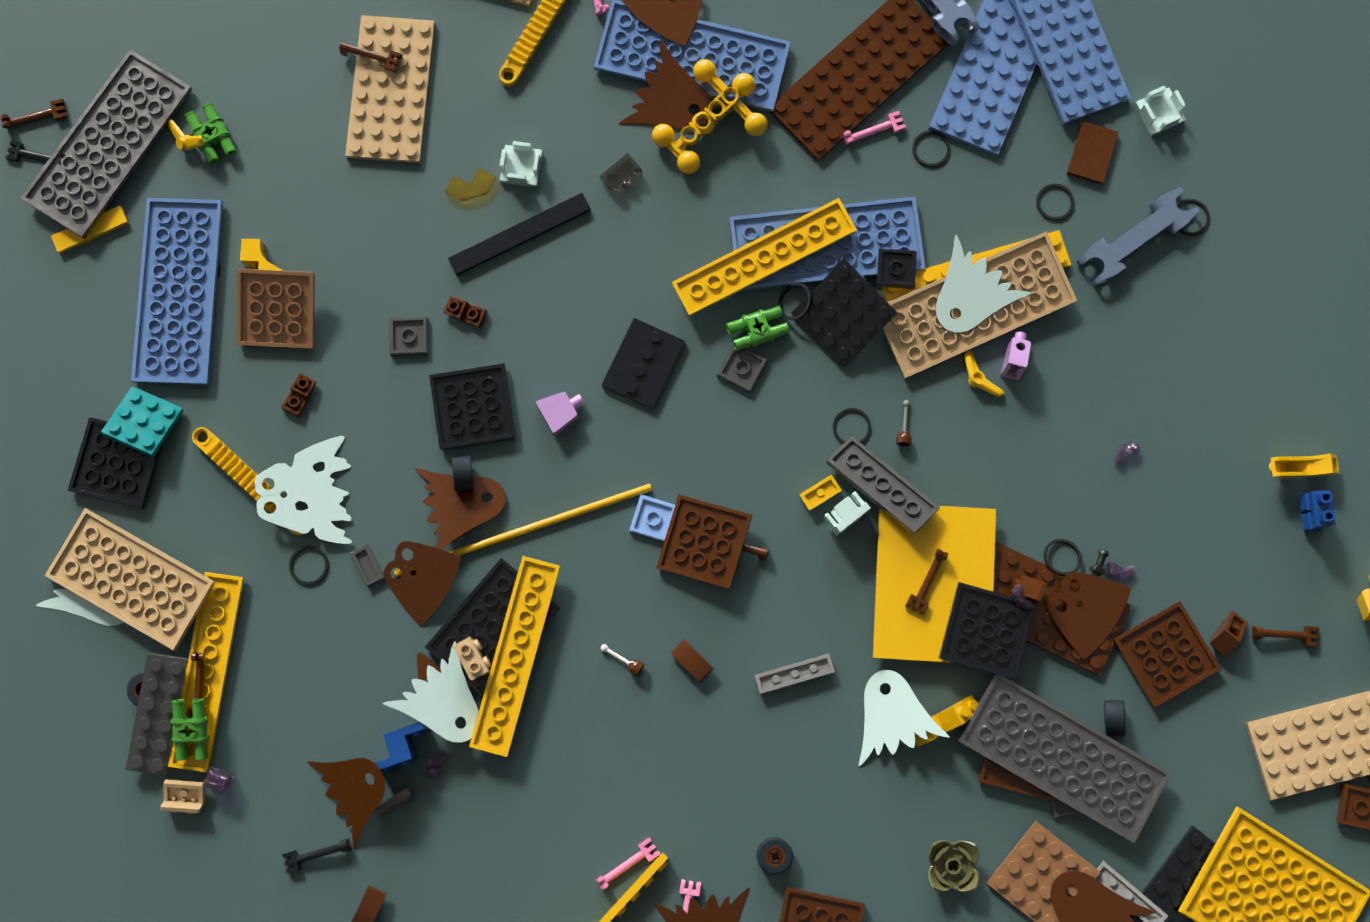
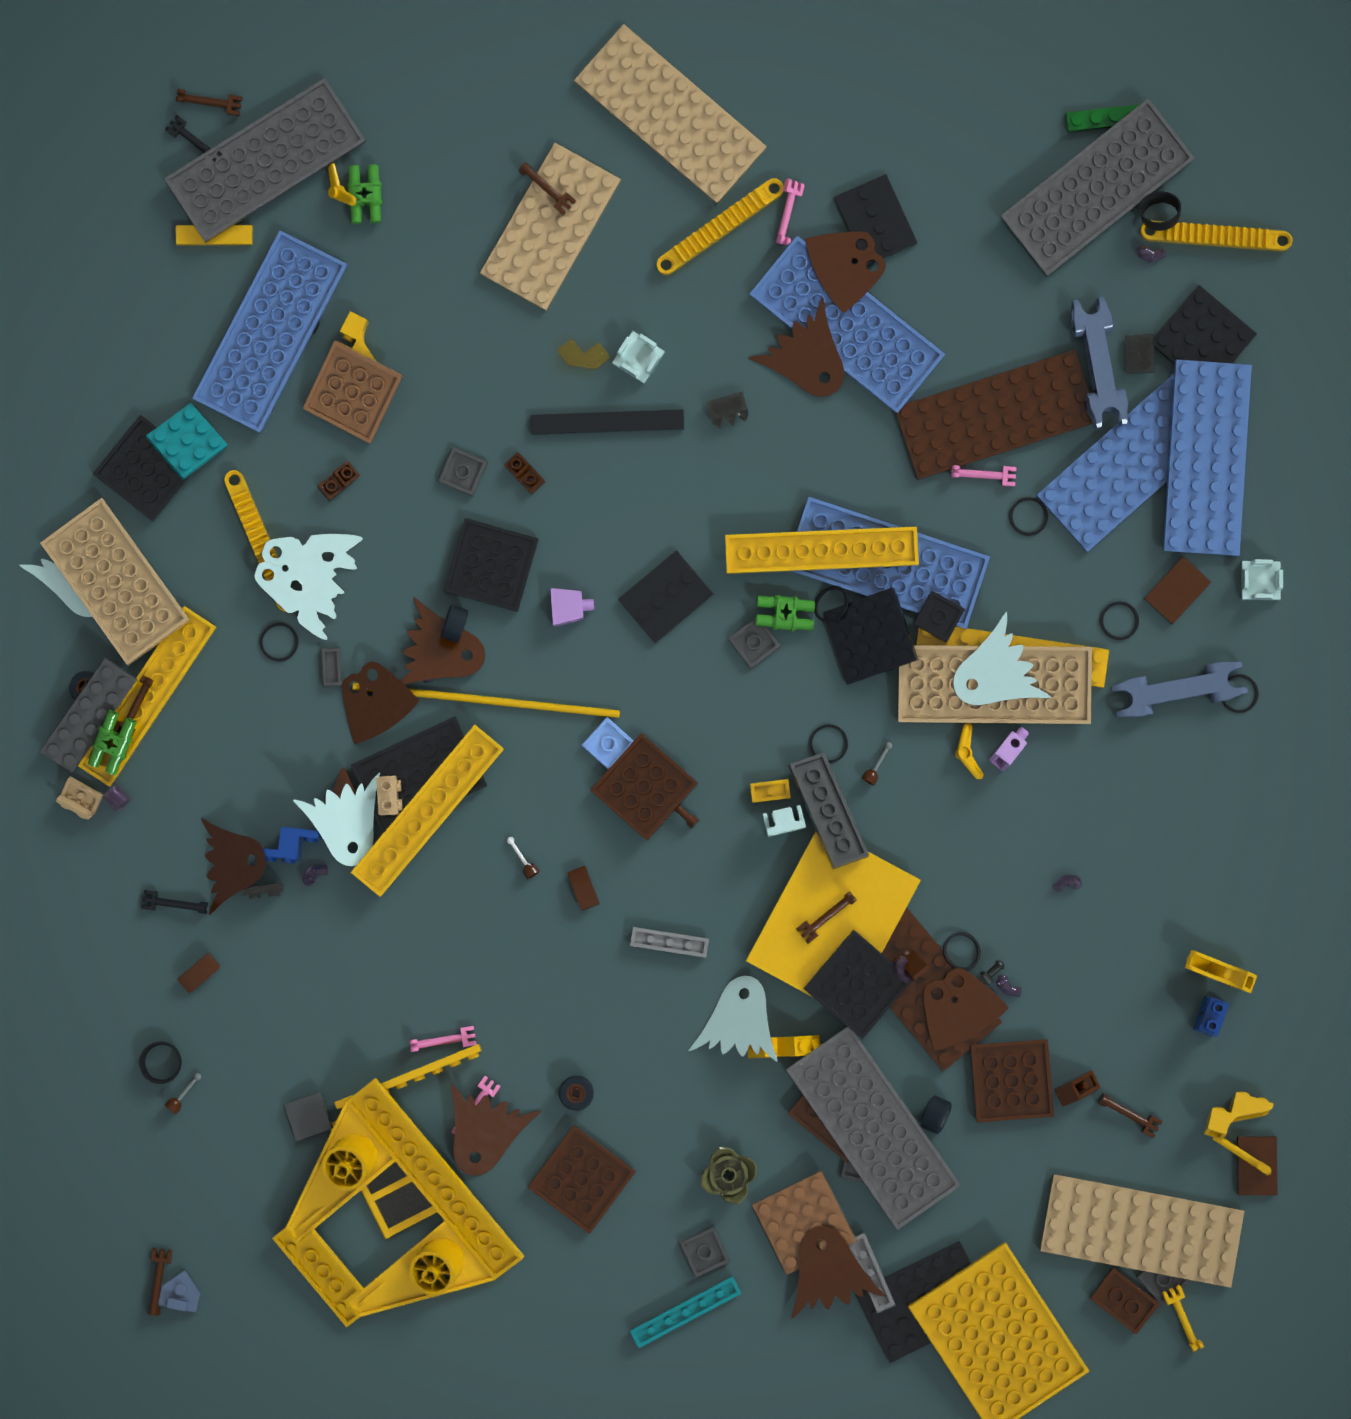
camera: 25 degrees right, 5 degrees up
(705, 72) = (878, 378): yellow piece -> none

